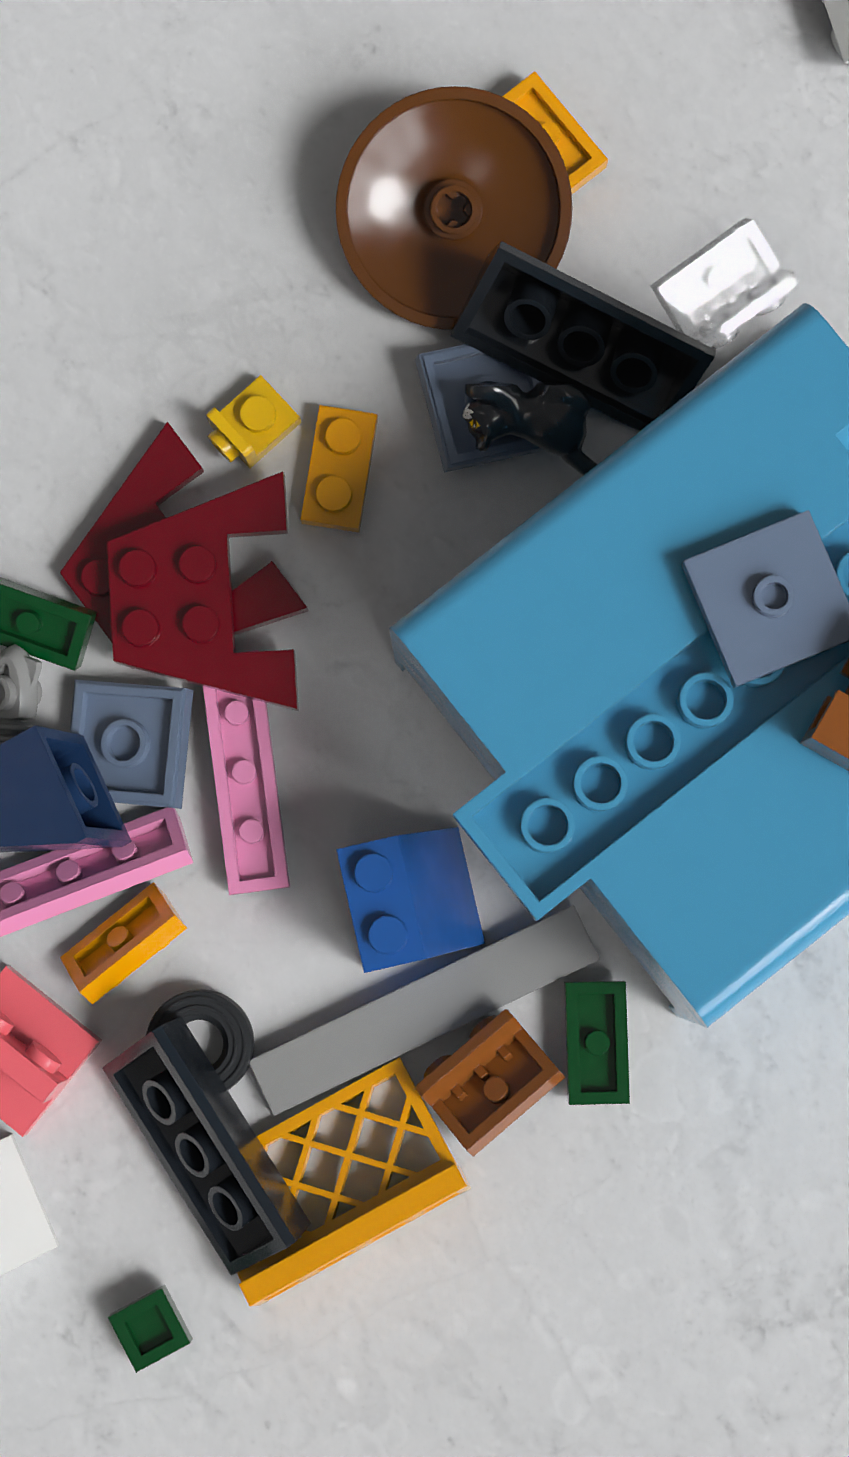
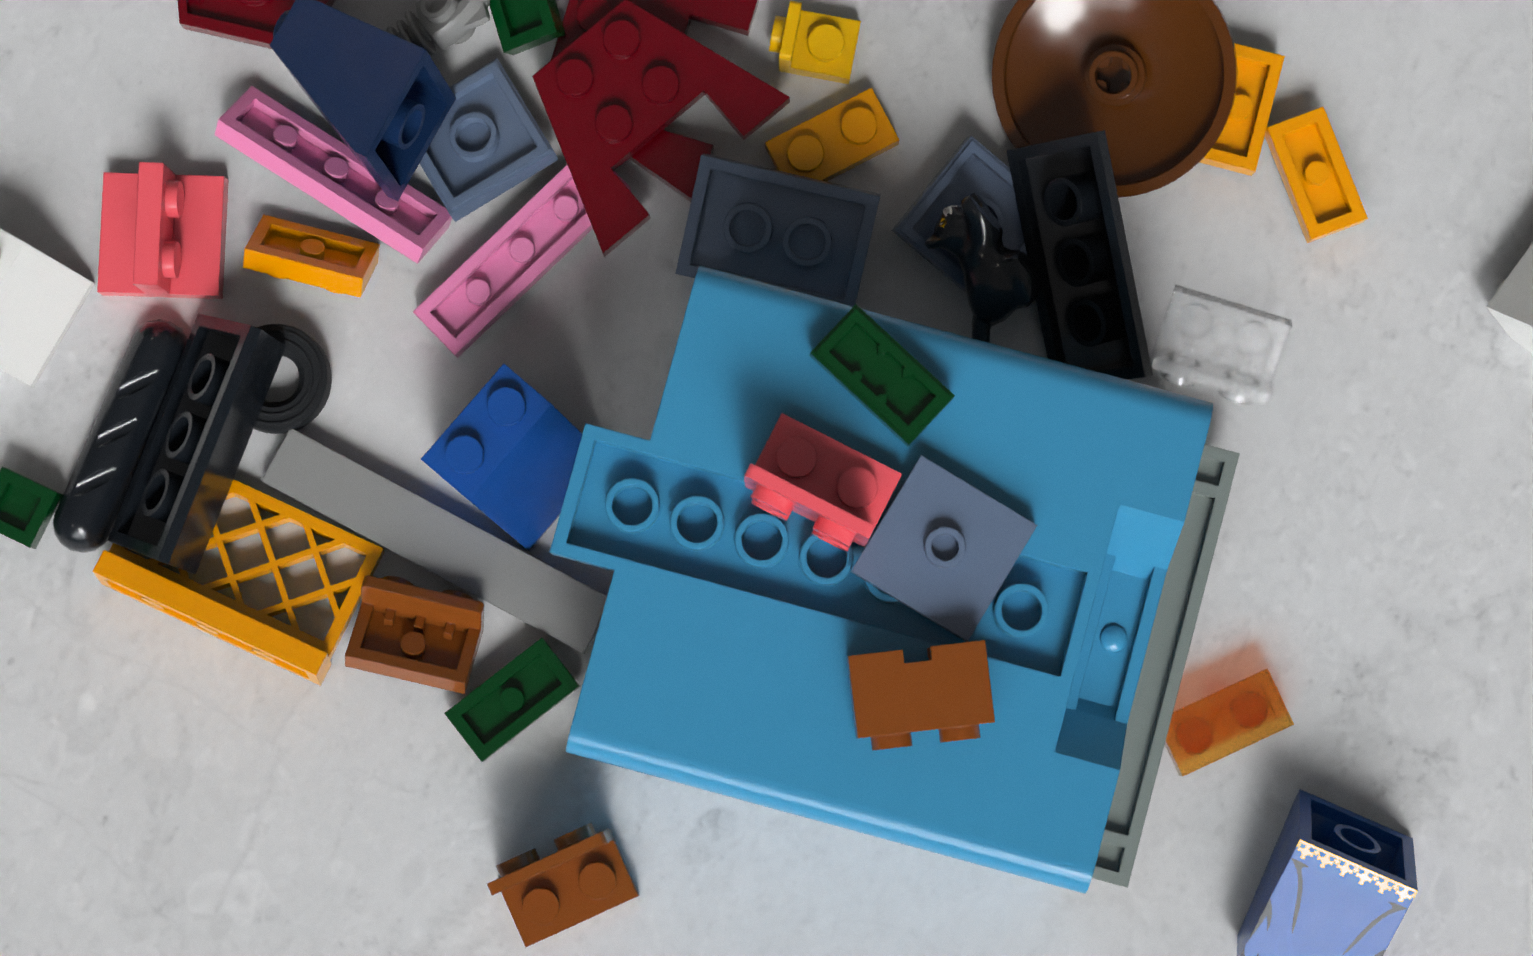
camera: 50 degrees right, 0 degrees up
(153, 1204) = (118, 437): none -> black piece
(381, 560) = (778, 229): none -> sand blue plate
(595, 544) = (881, 375): none -> dark green plate
(643, 117) = (1315, 174): none -> light orange plate
(647, 654) = (821, 482): none -> coral bracket
(772, 1108) = (565, 886): none -> dark orange bracket

